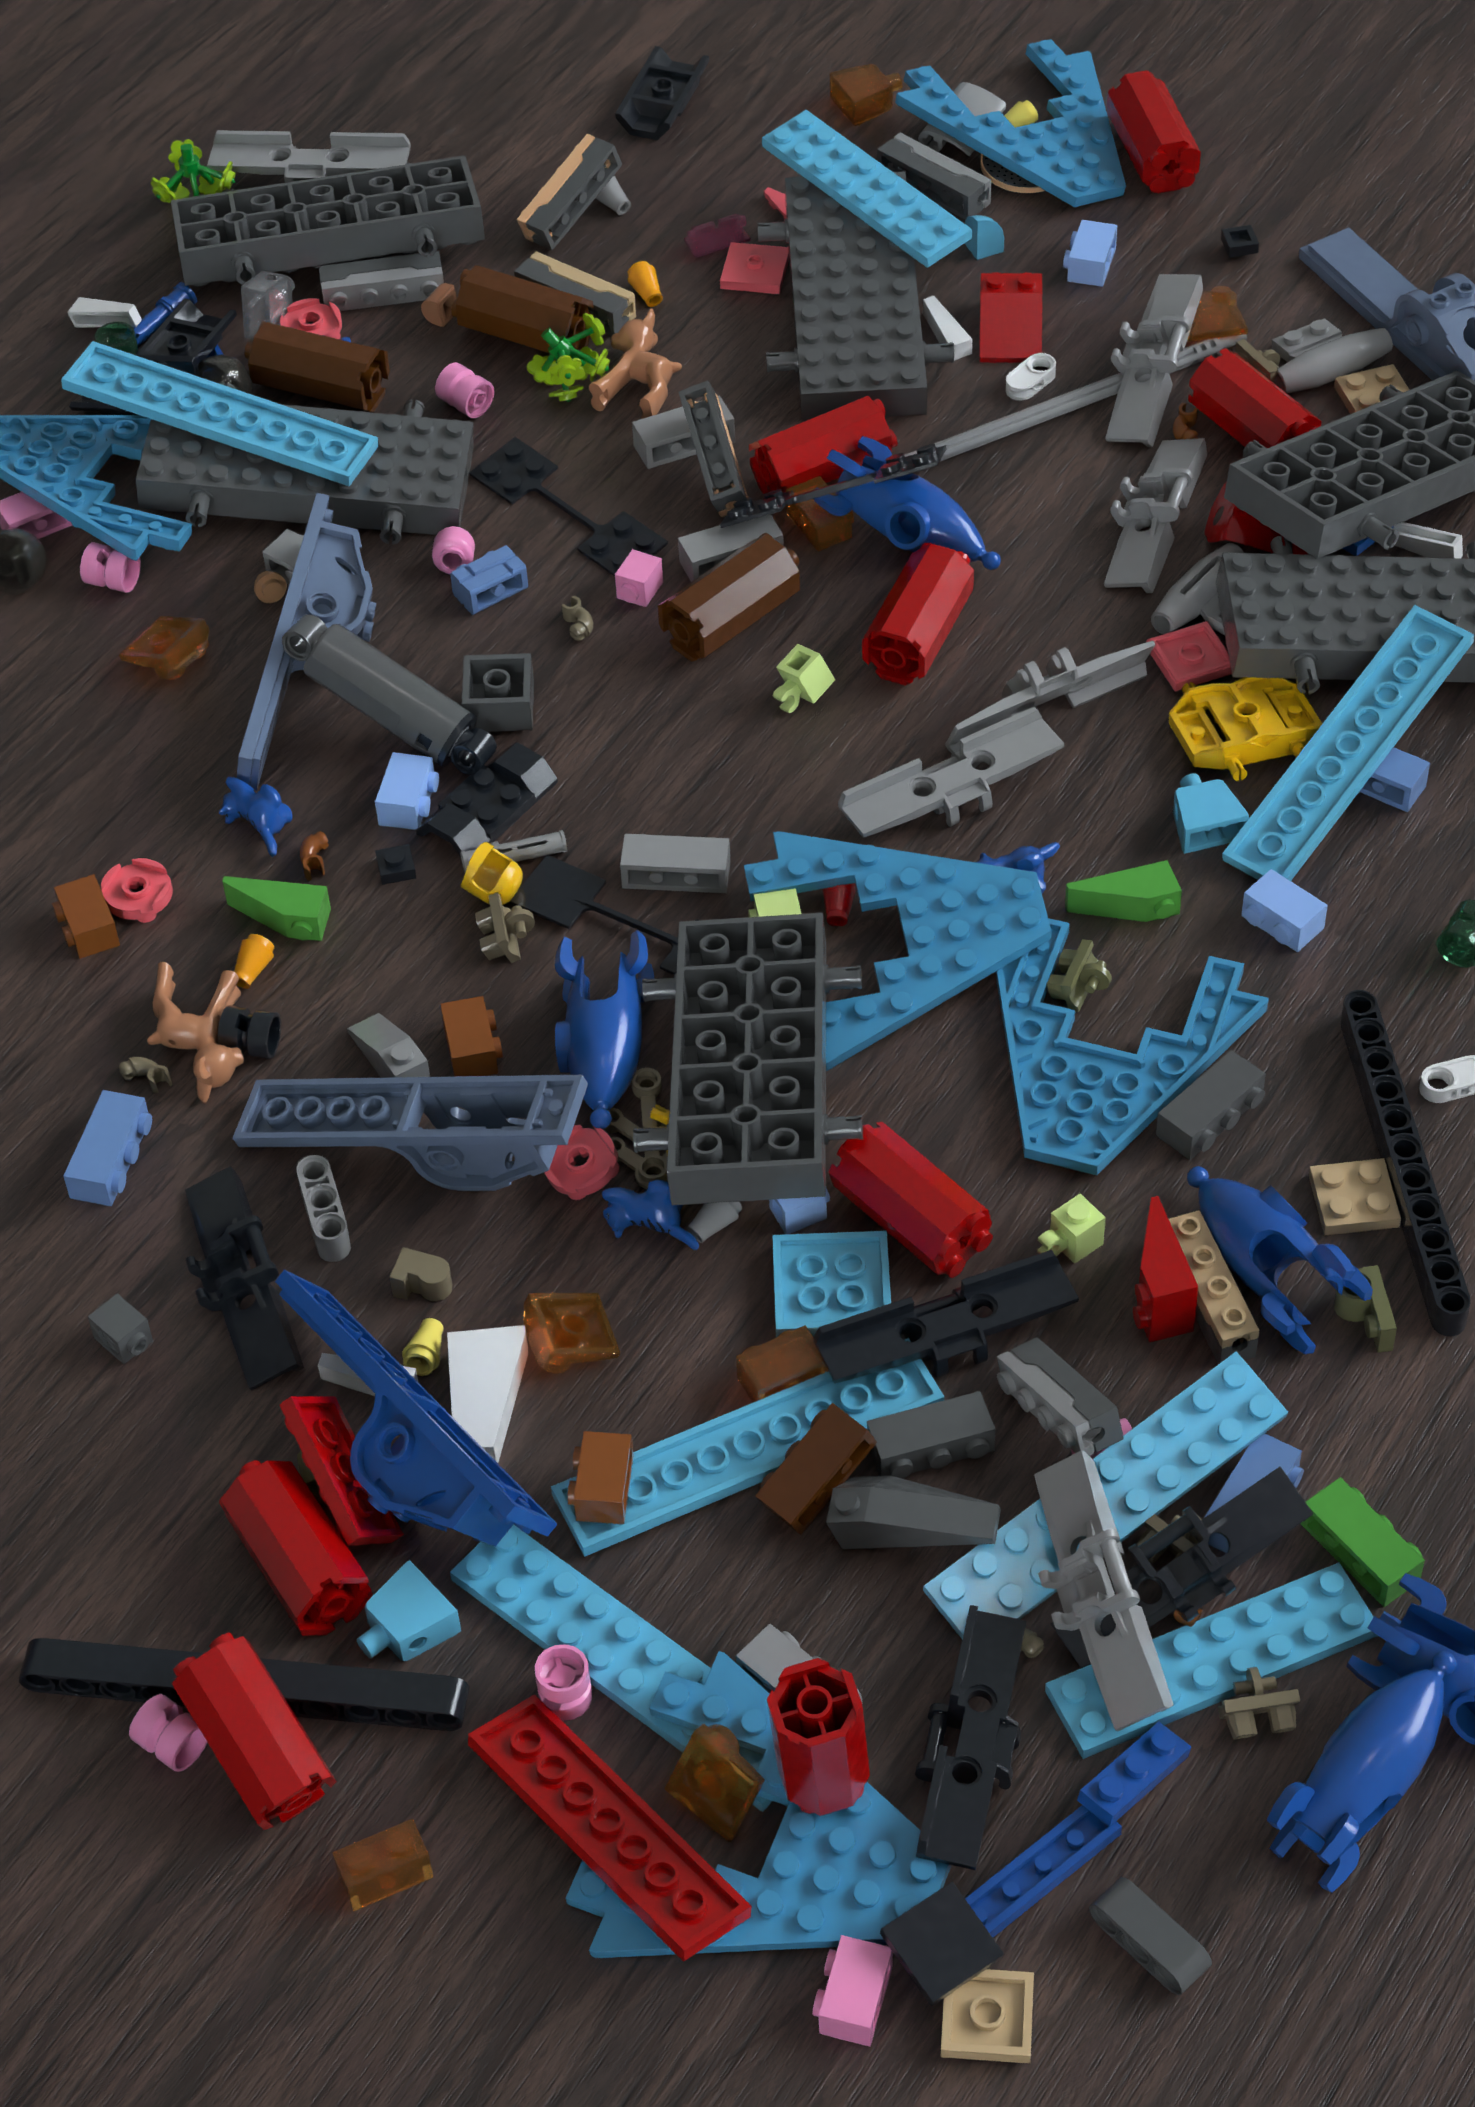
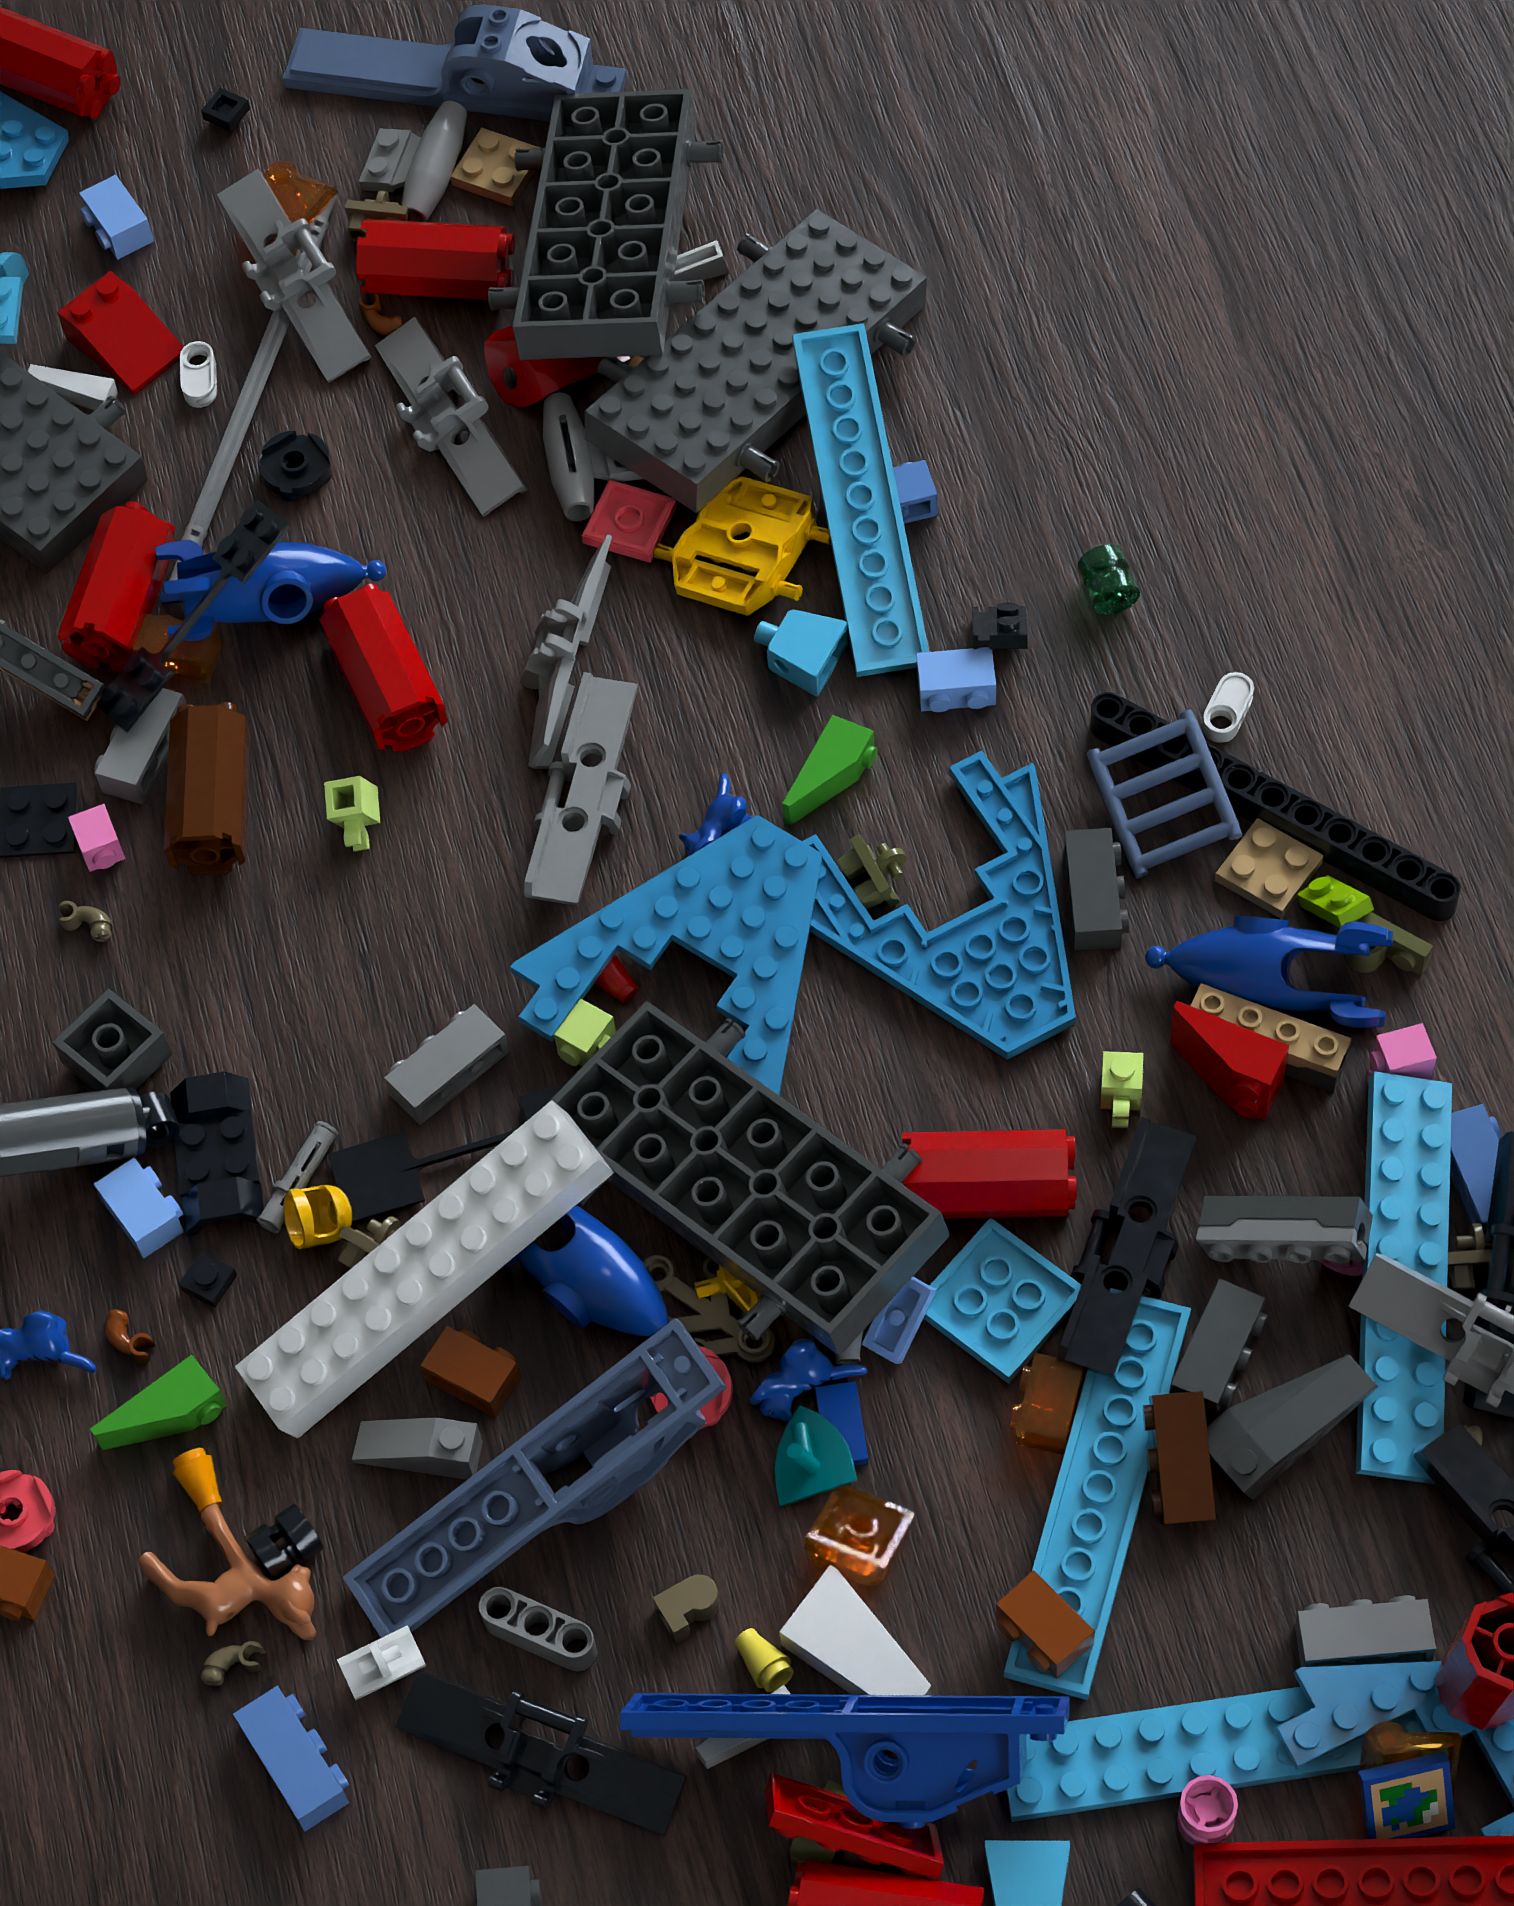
camera: 45 degrees left, 10 degrees up
(216, 1141) = (381, 1662): none -> white hips
(501, 943) = (423, 1270): none -> white brick
(599, 1266) = (811, 1458): none -> teal shield
(644, 1266) = (842, 1409): none -> blue tile
(693, 1796) = (1407, 1798): none -> tile
(752, 1232) = (899, 1321): none -> light blue plate
(1009, 476) = (299, 481): none -> black plate
(1281, 1369) = (1403, 1053): none -> bright pink brick
(1352, 903) = (1000, 627): none -> black plate
(1362, 1110) = (1114, 794): none -> sand blue bar
(1366, 1245) = (1334, 901): none -> lime plate

